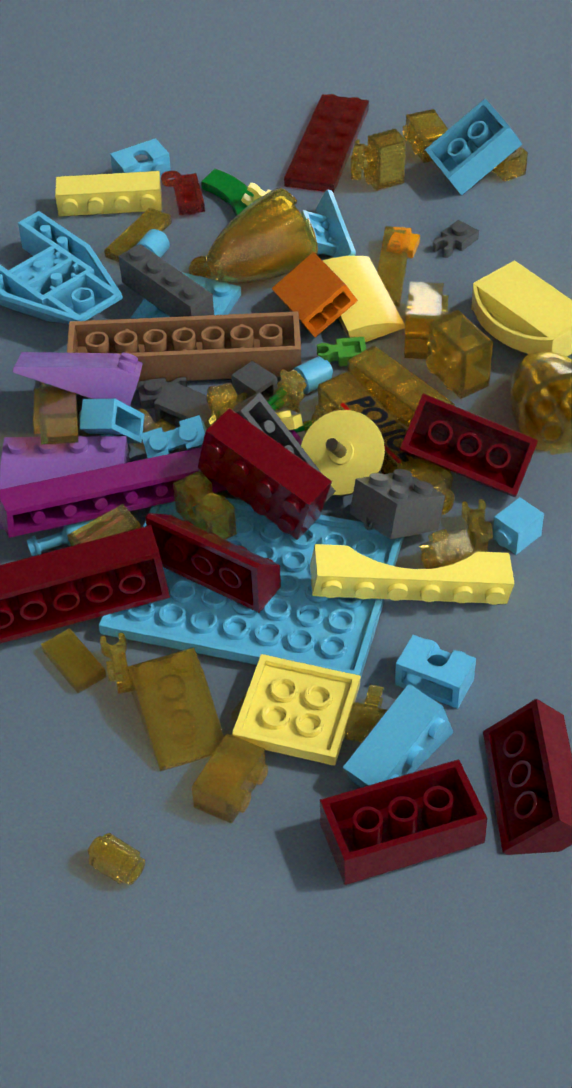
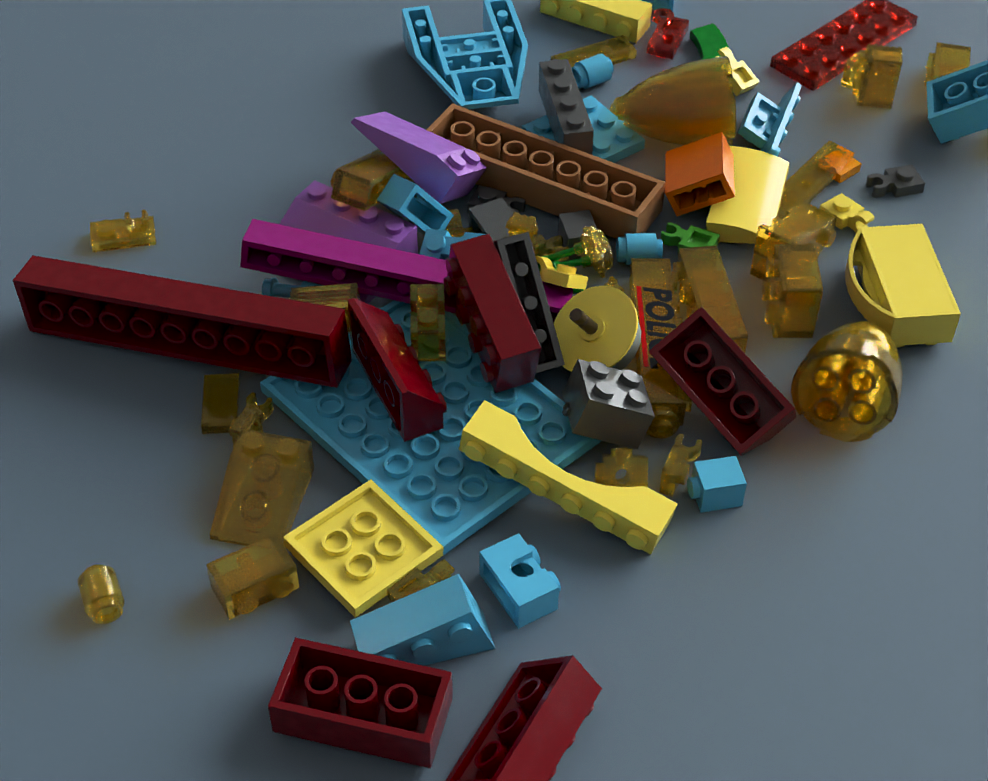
camera: 30 degrees right, 0 degrees up
(439, 274) = (847, 212): none -> light yellow plate

